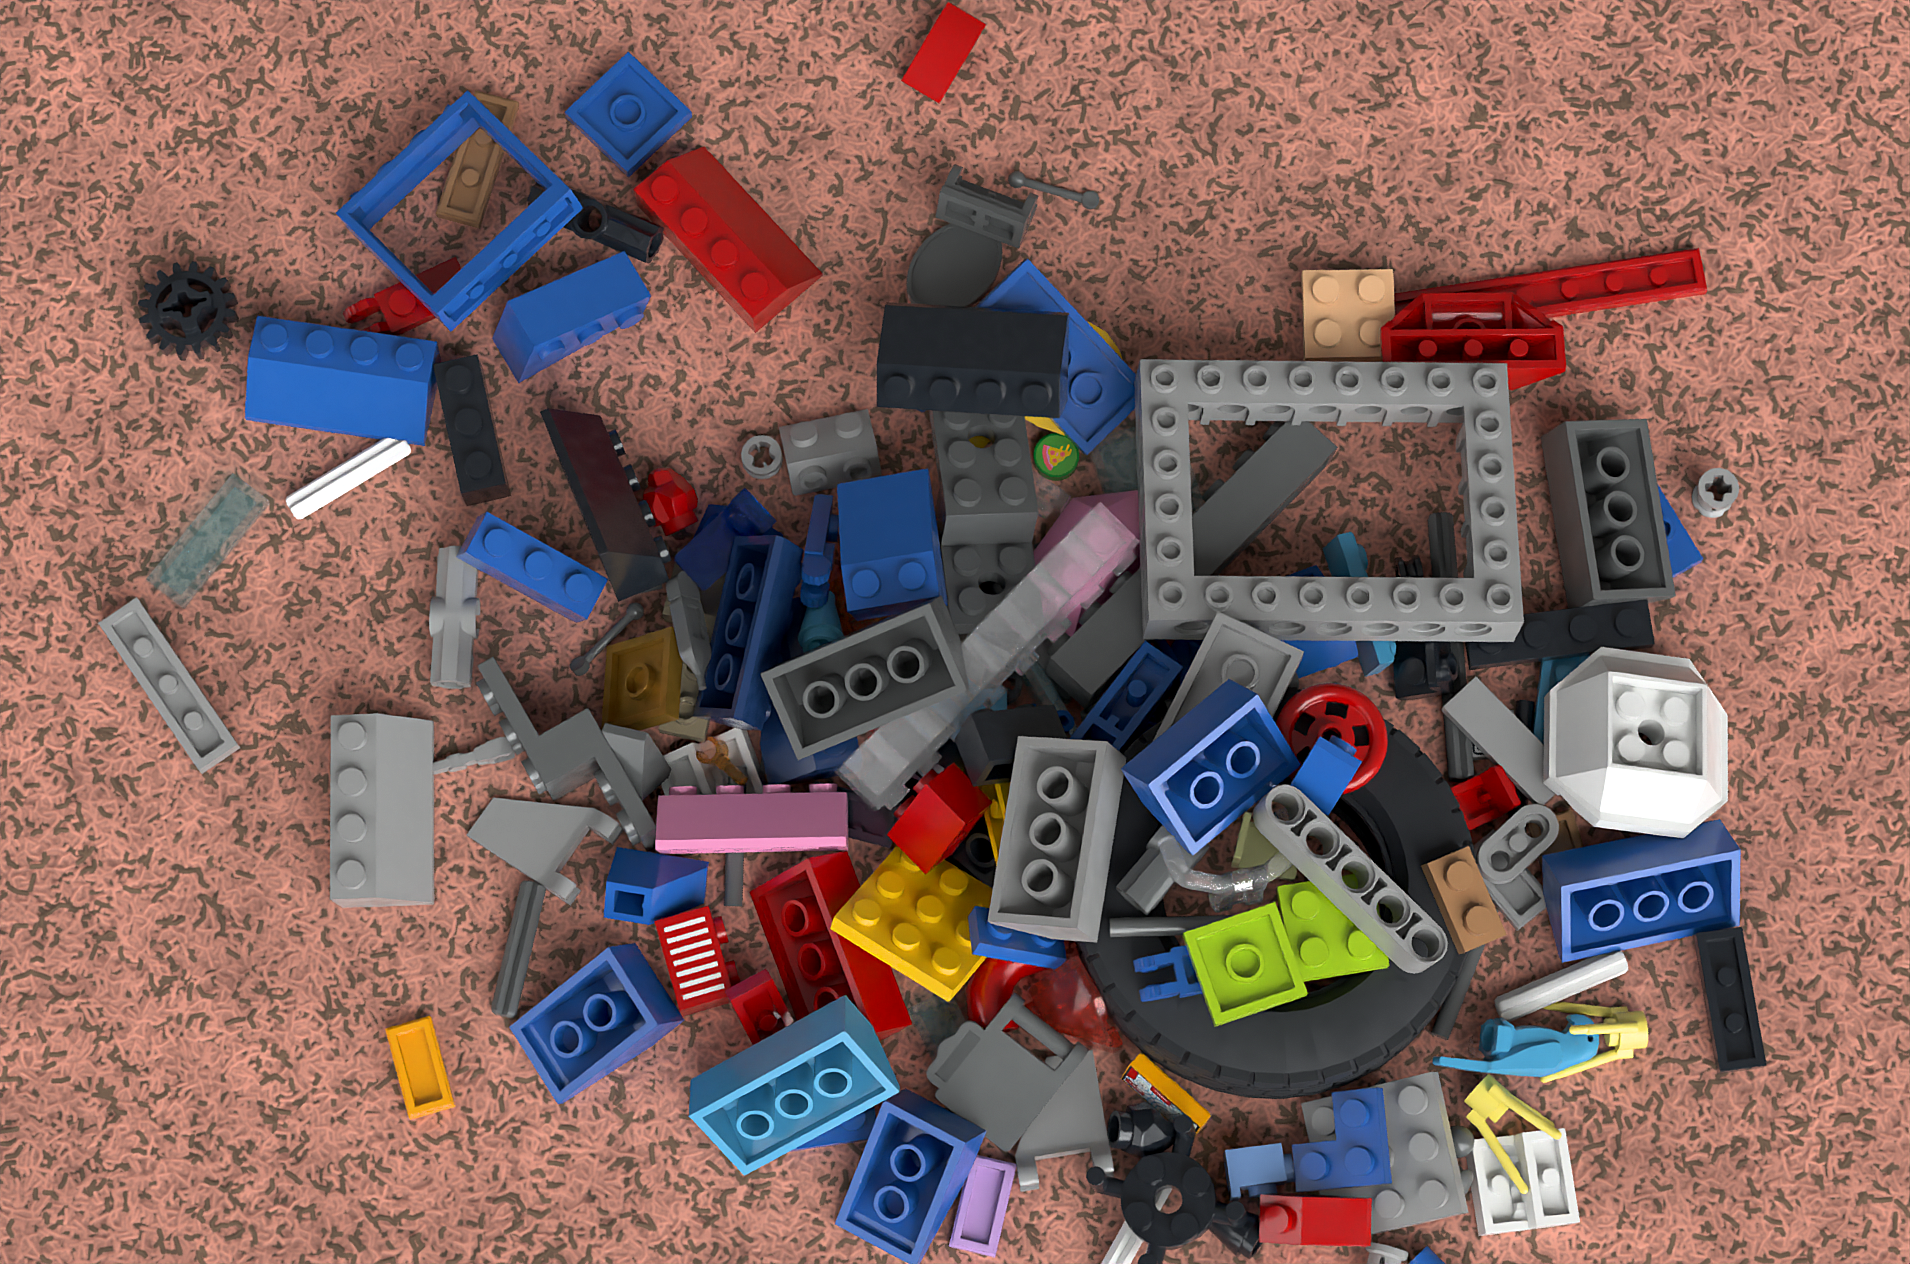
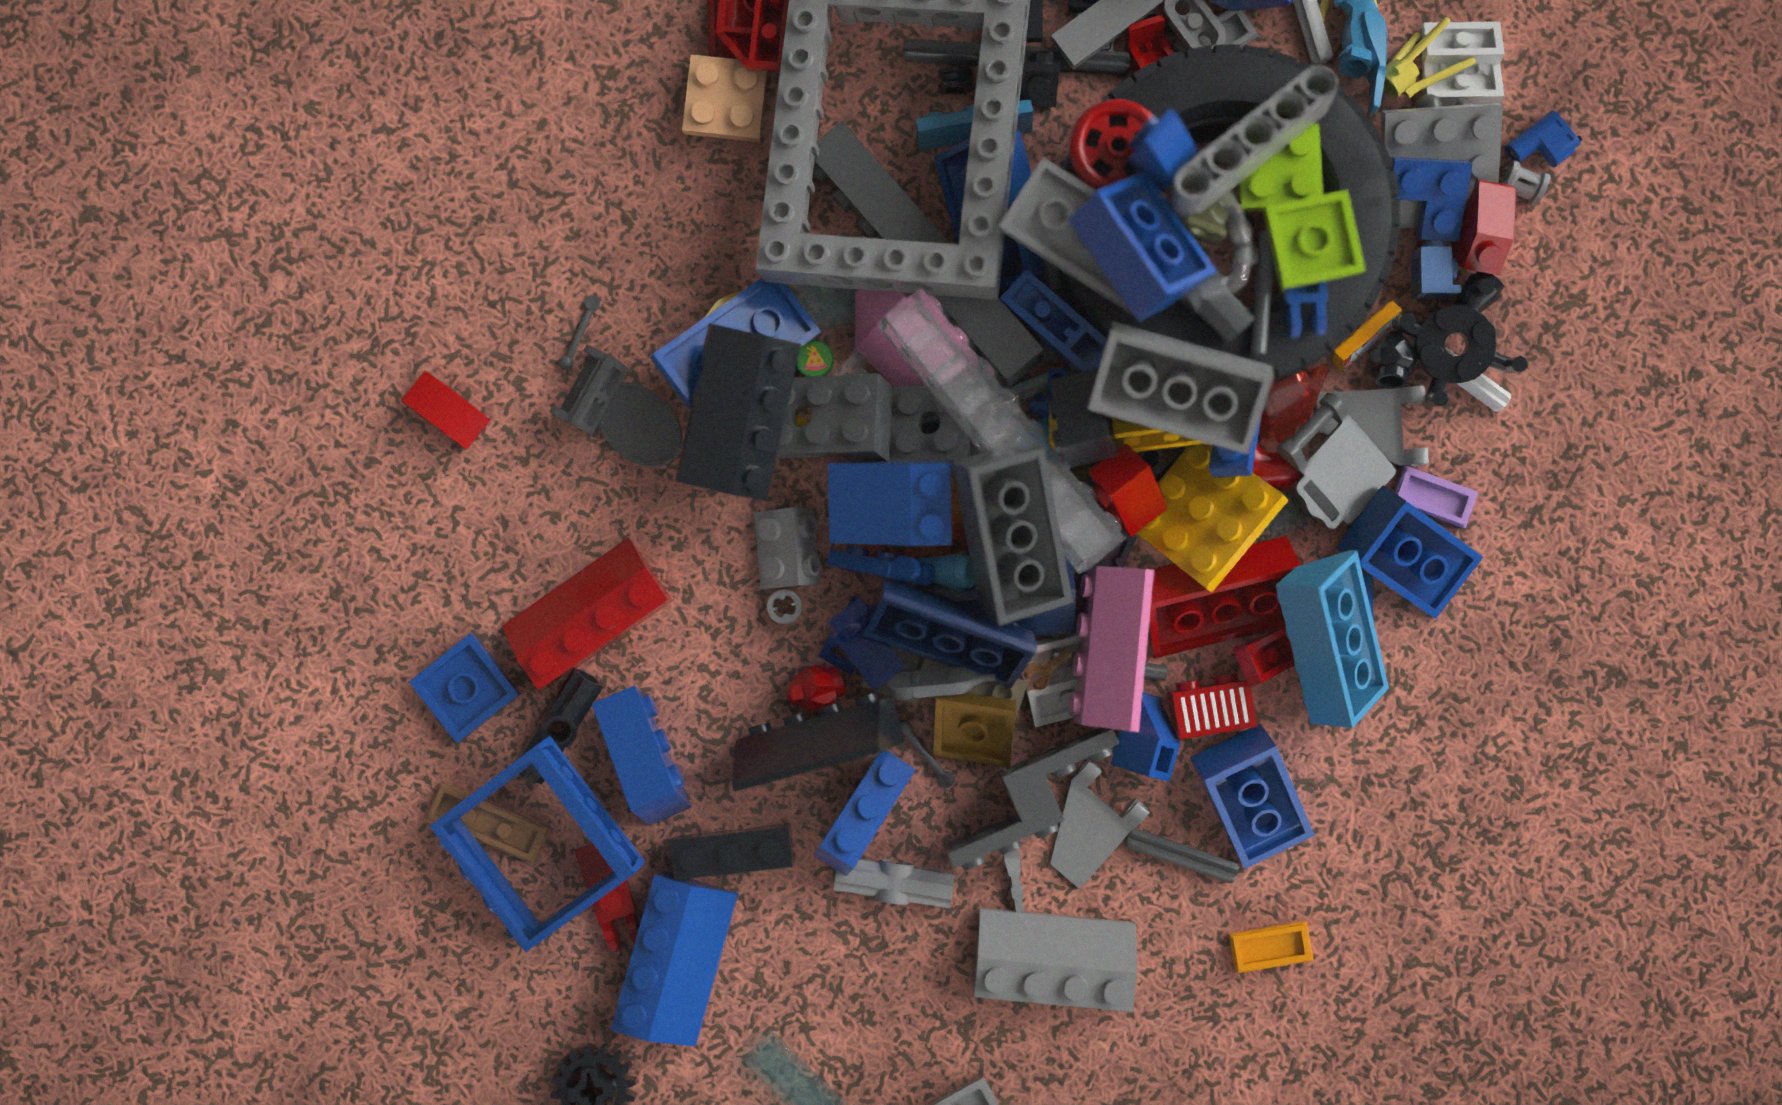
camera: 85 degrees left, 10 degrees up
(346, 476) = (757, 962): white axle -> none
(638, 758) = (1047, 739): dark grey slope -> none
(1463, 900) = (1266, 56): medium nougat plate -> none

